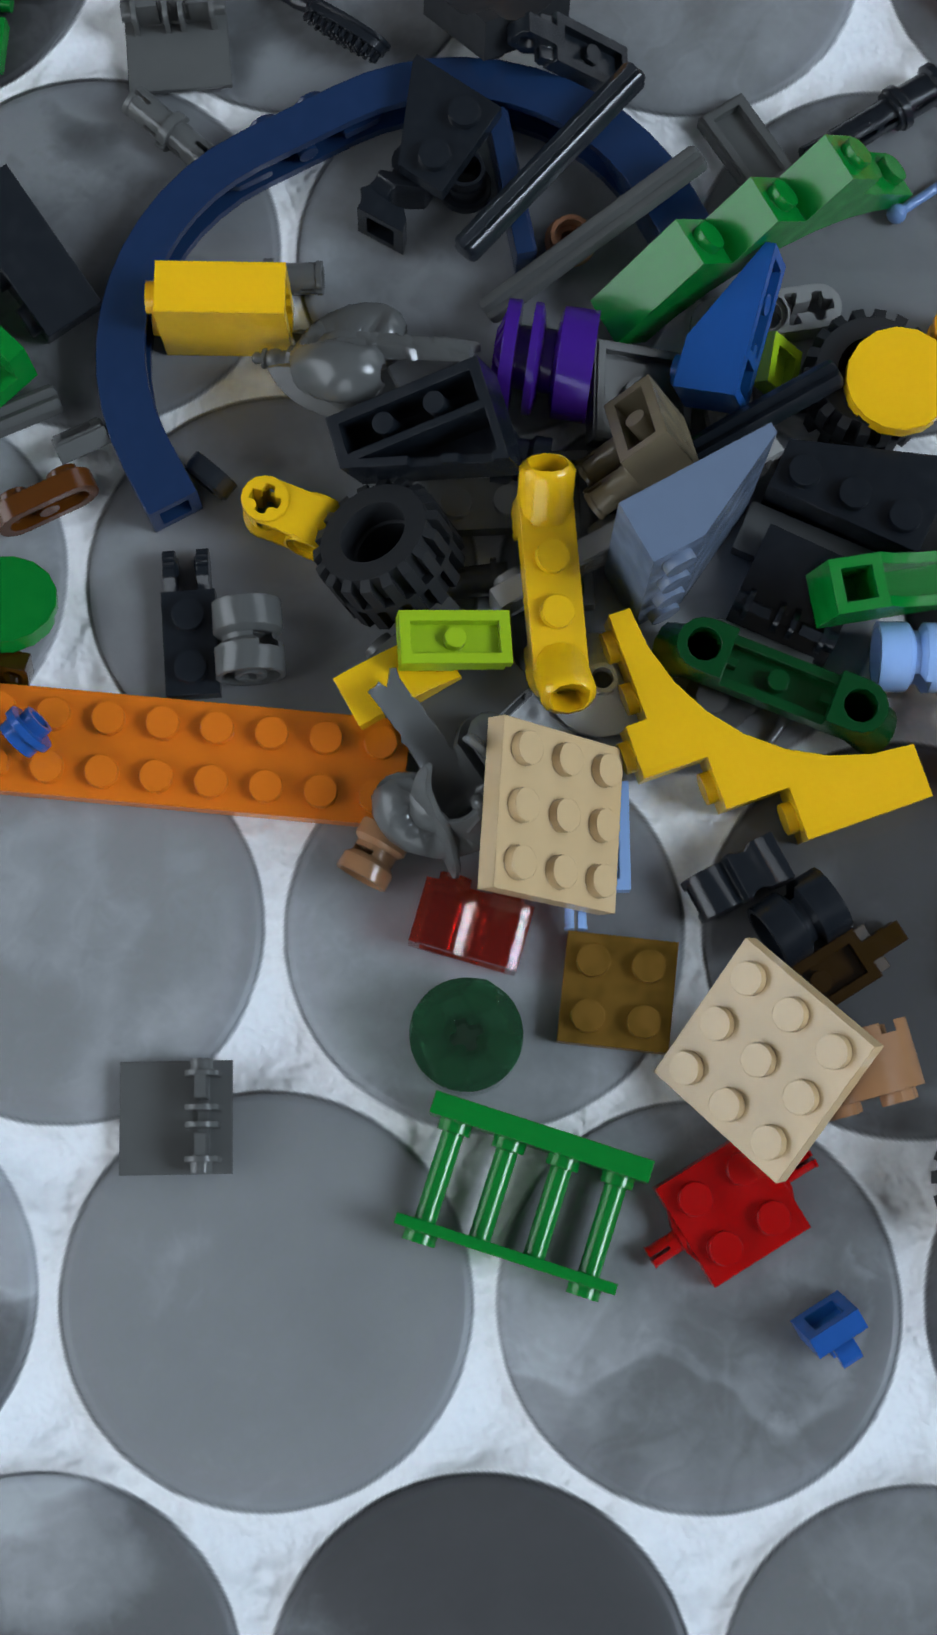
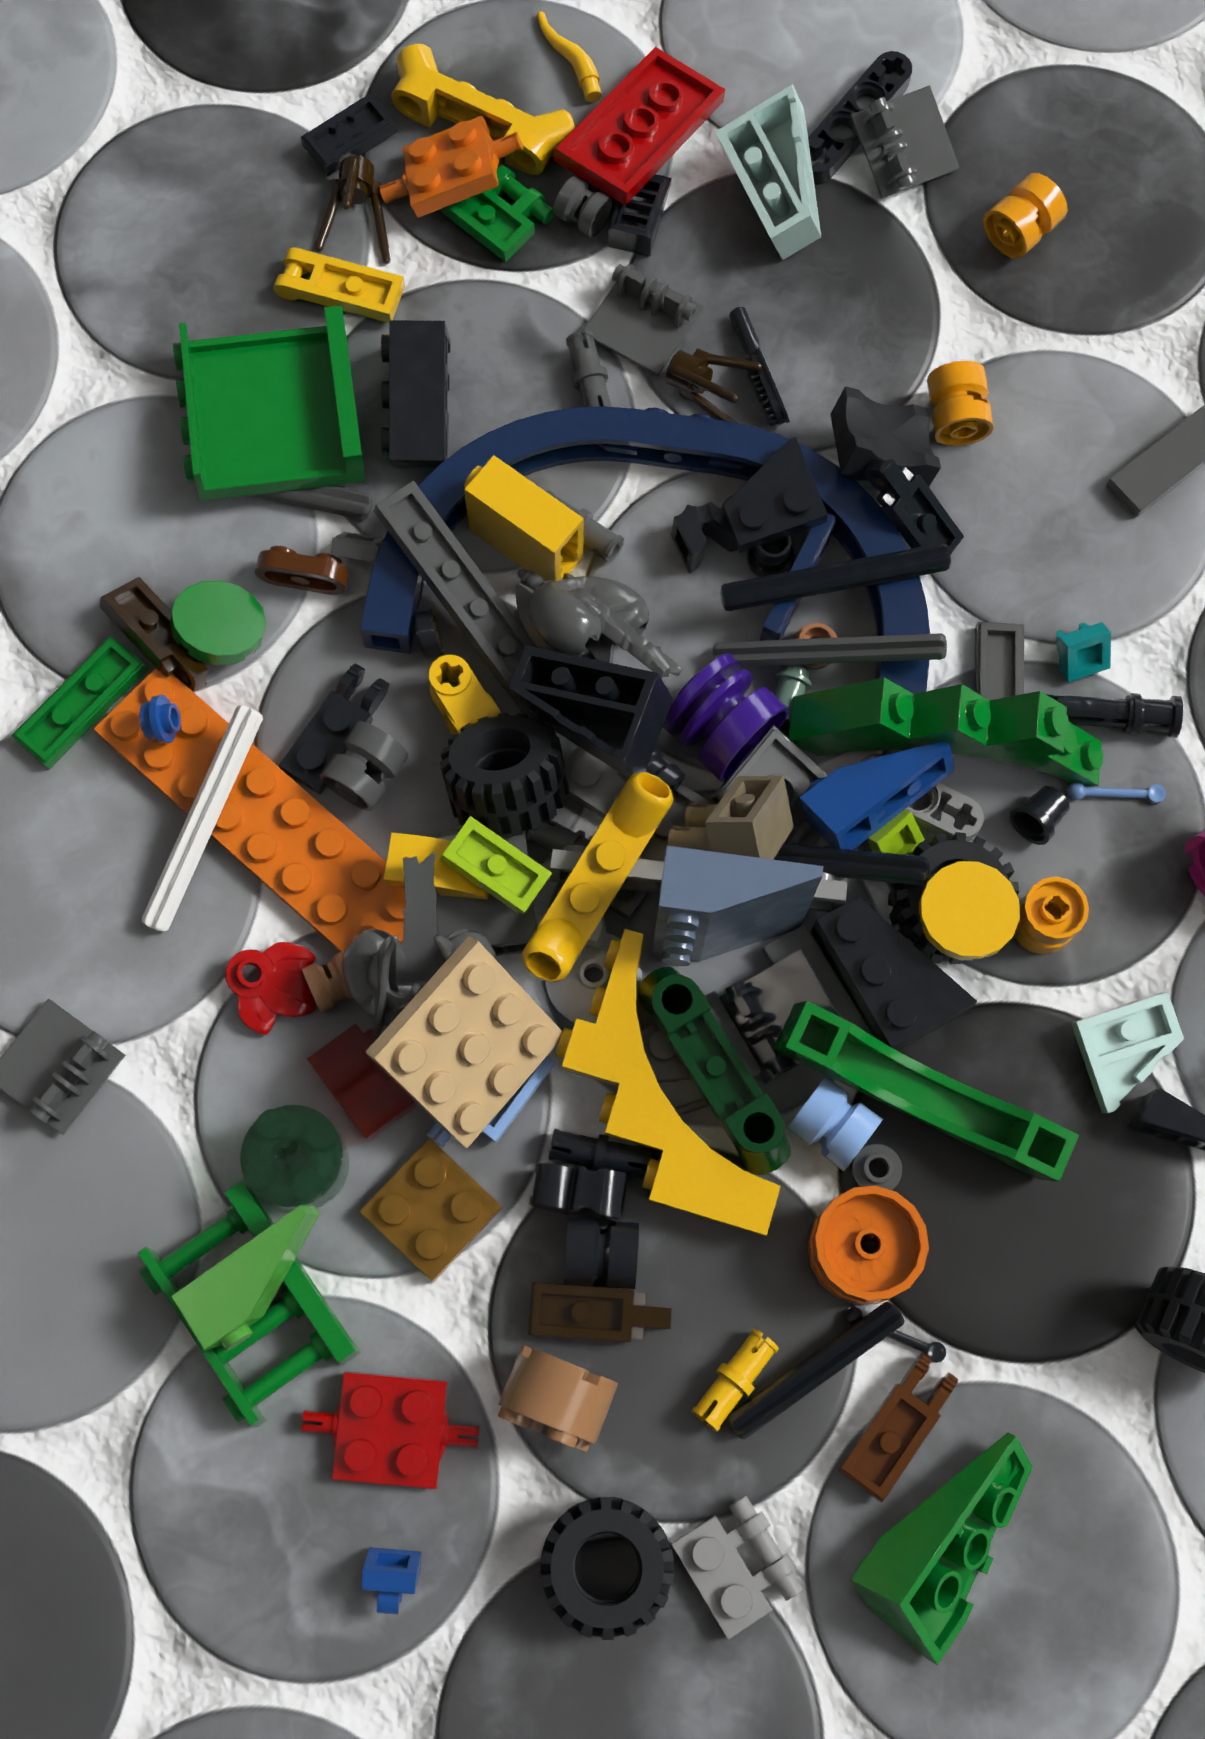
camera: 35 degrees right, 5 degrees down
(137, 793) = (202, 818): none -> white axle
(212, 410) = (455, 581): none -> dark grey plate
(267, 63) = (694, 377): none -> dark brown plant
(325, 899) = (279, 986): none -> red plate
(514, 1187) = (242, 1285): none -> bright green slope
(577, 291) = (791, 682): none -> sand green pin
(728, 833) = (599, 1153): none -> black pin
(767, 1059) = (490, 1337): tan plate -> none
(812, 80) = (1084, 651): none -> teal tile
(883, 257) = (1040, 815): none -> black piece

